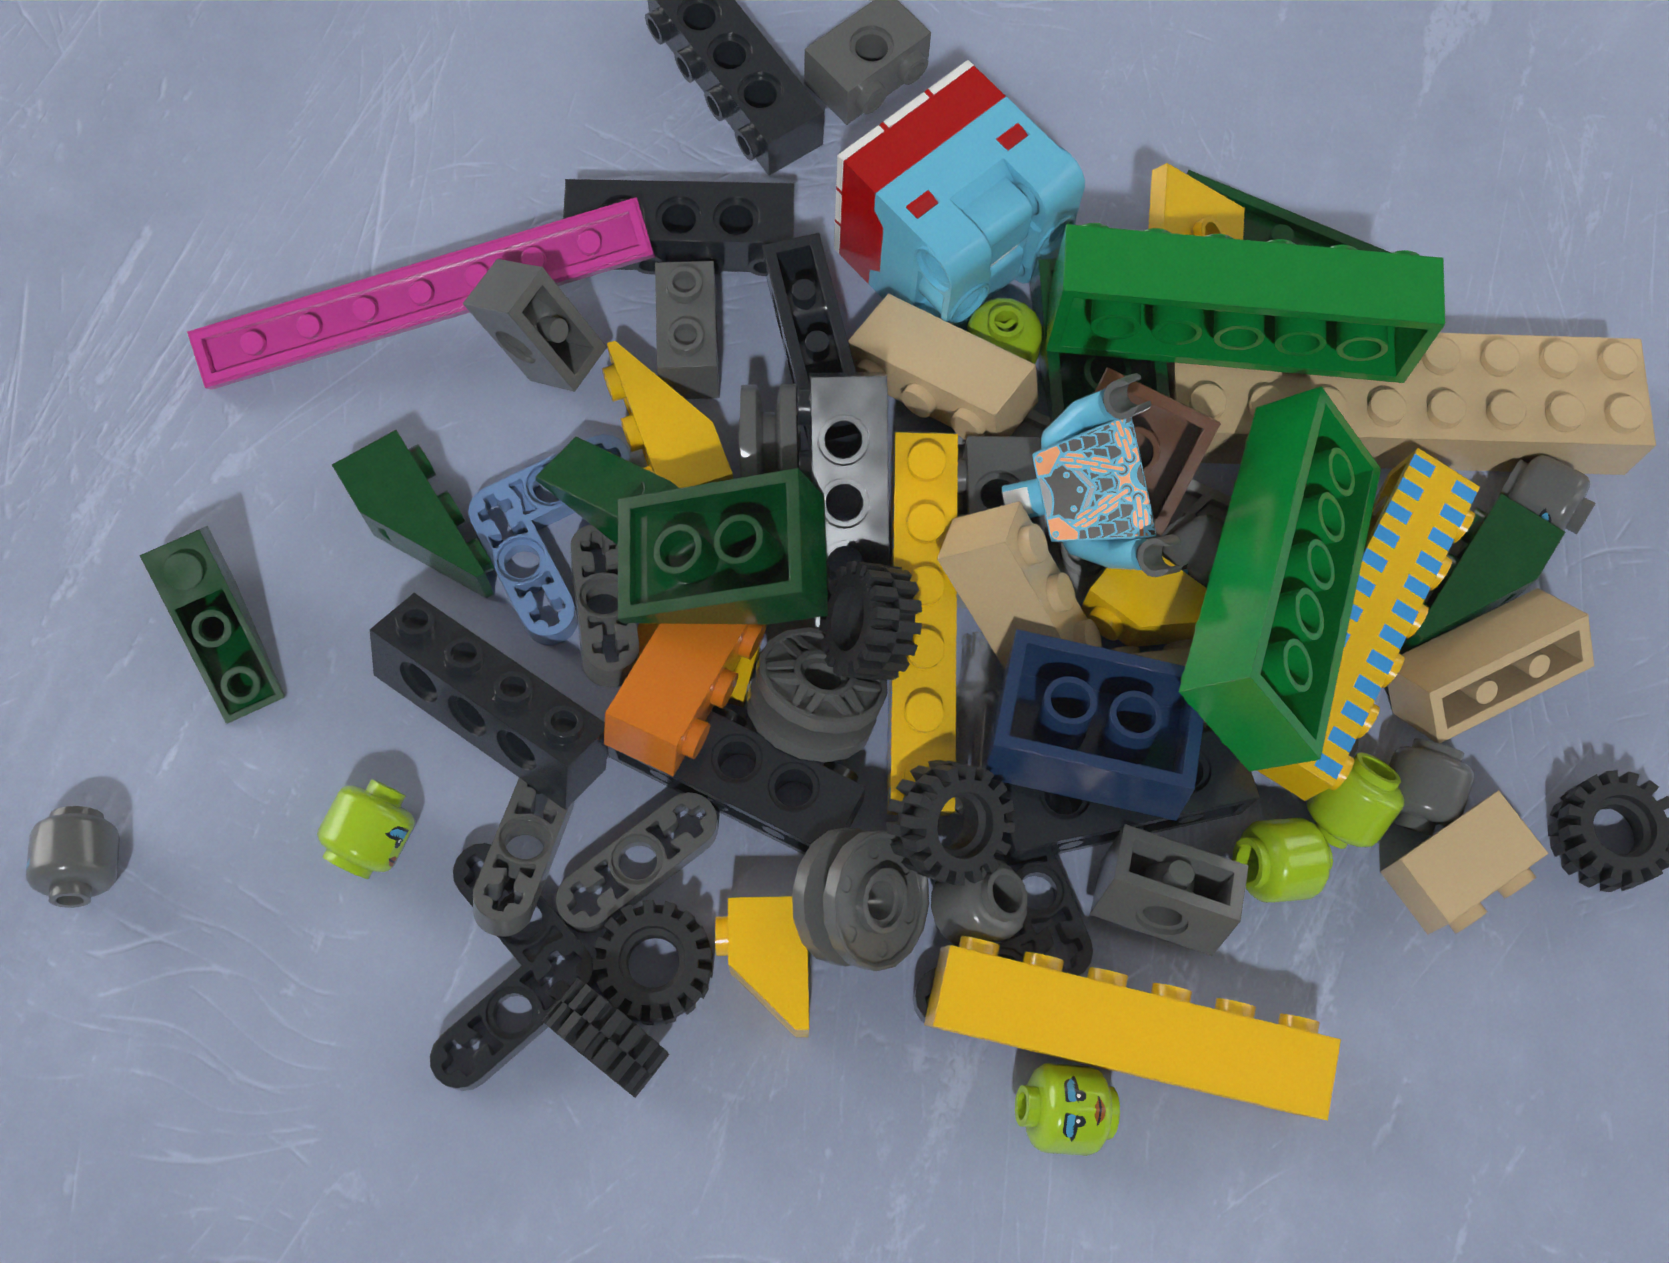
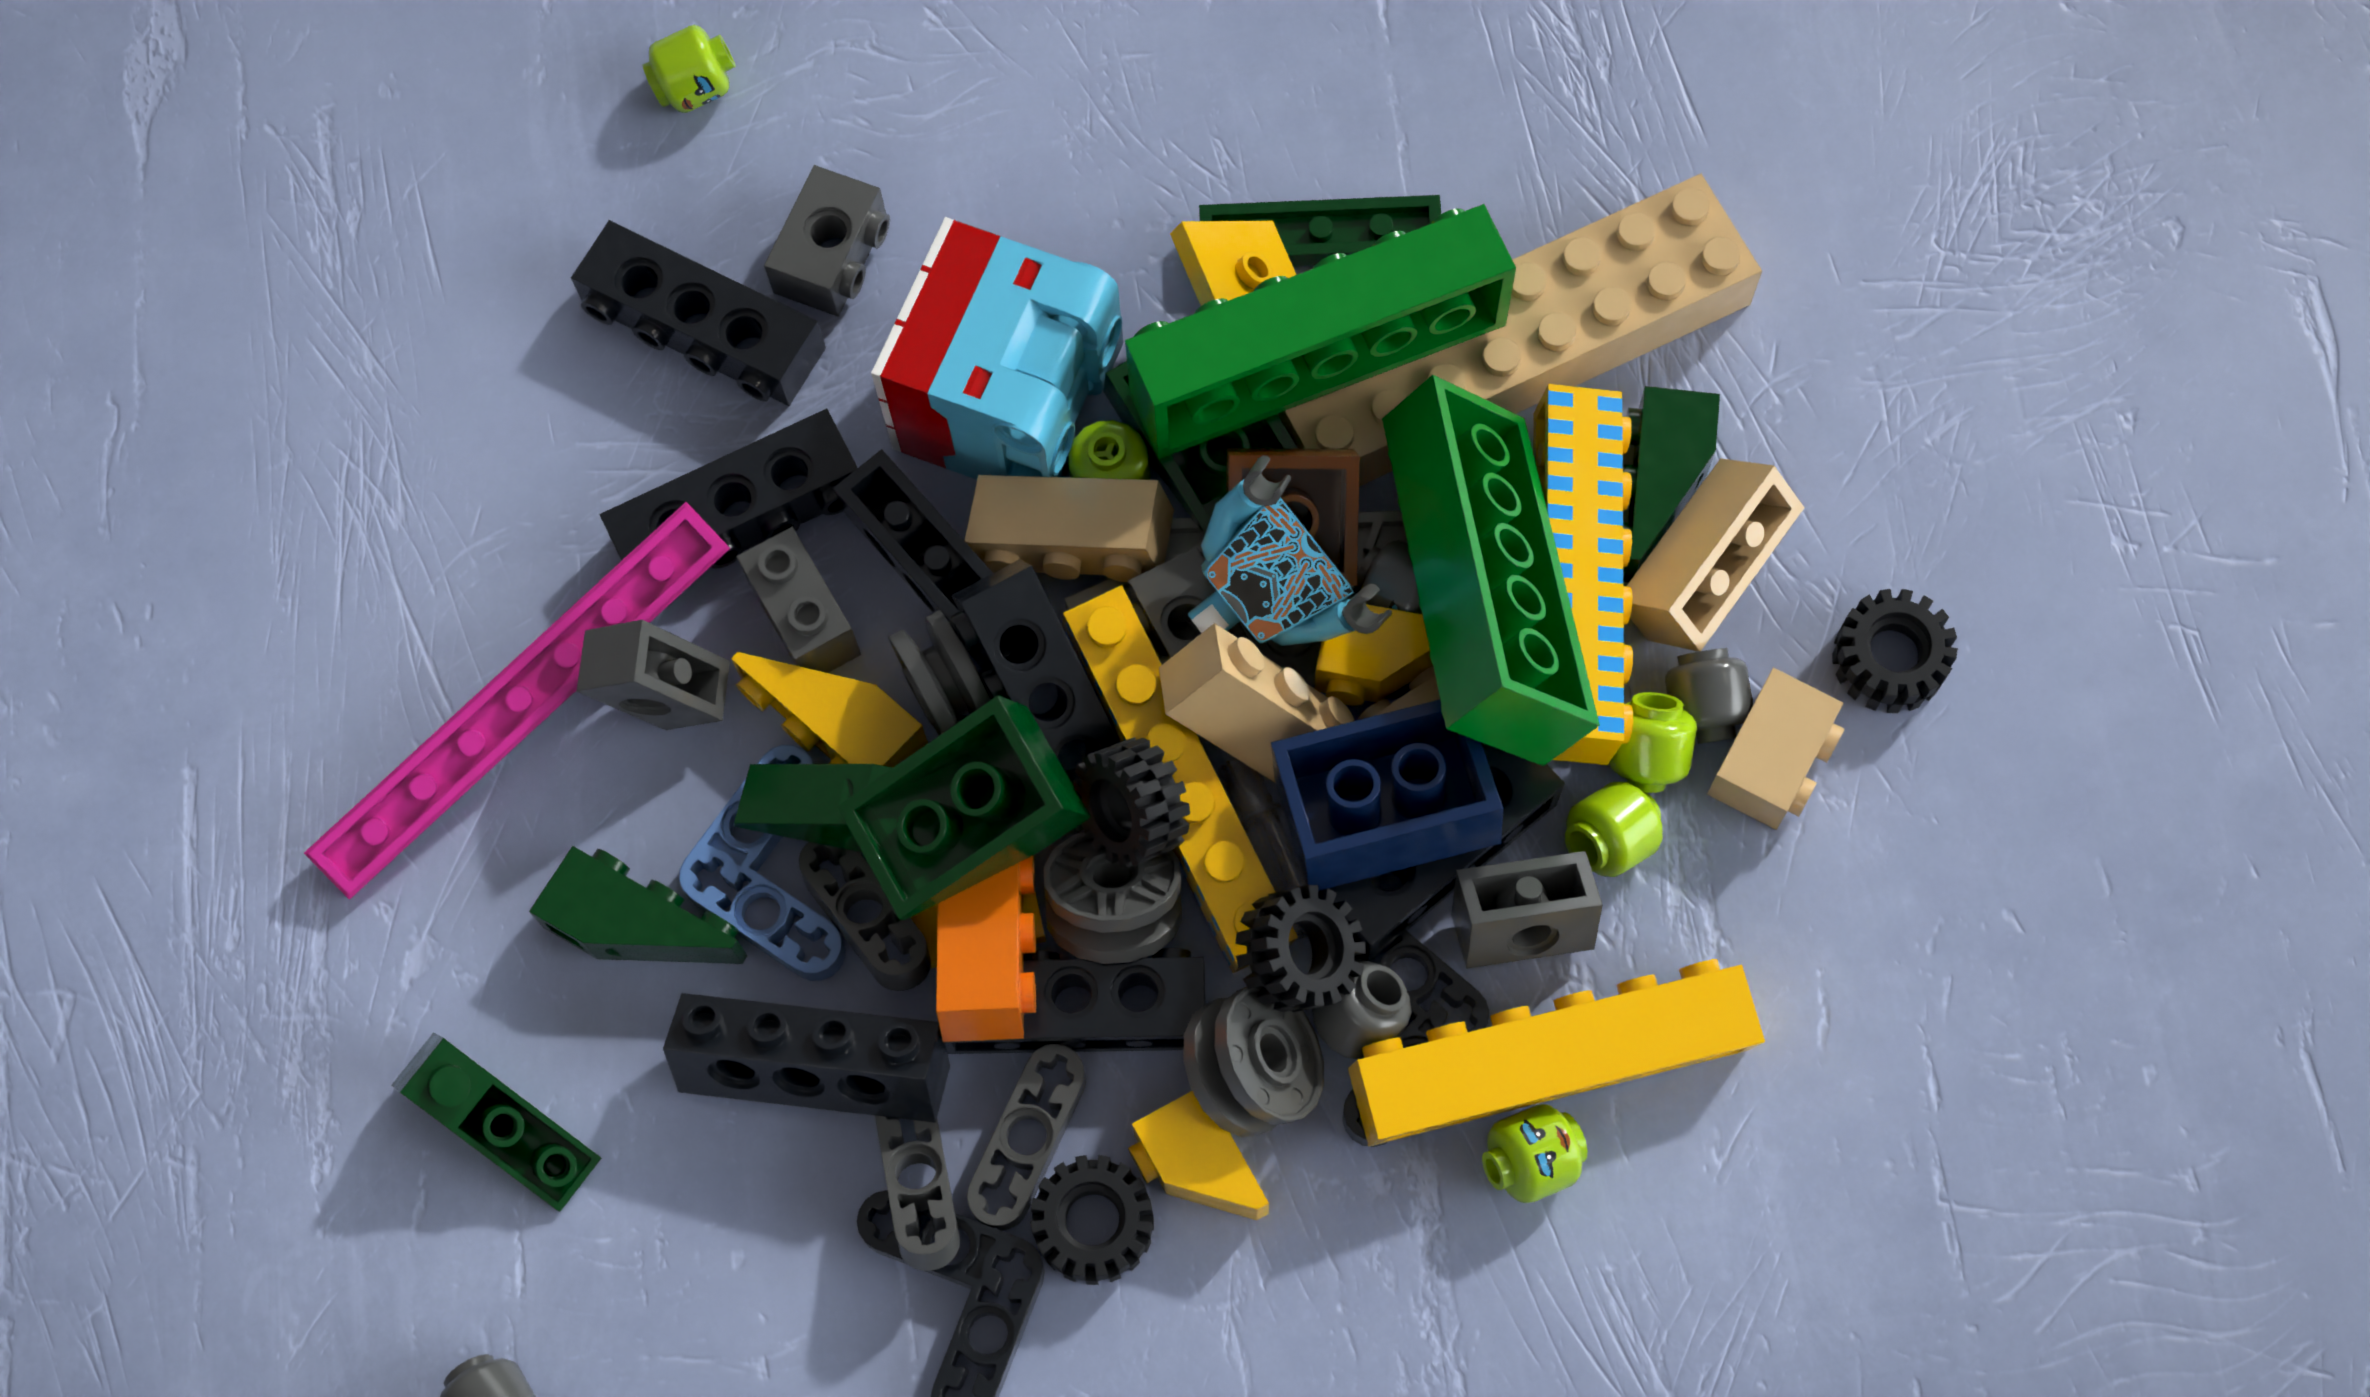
camera: 20 degrees left, 0 degrees up
(366, 829) = (755, 1237): lime head -> none
(606, 1037) = (1088, 1307): black tyre -> none
(1551, 492) = (1689, 360): dark grey head -> none

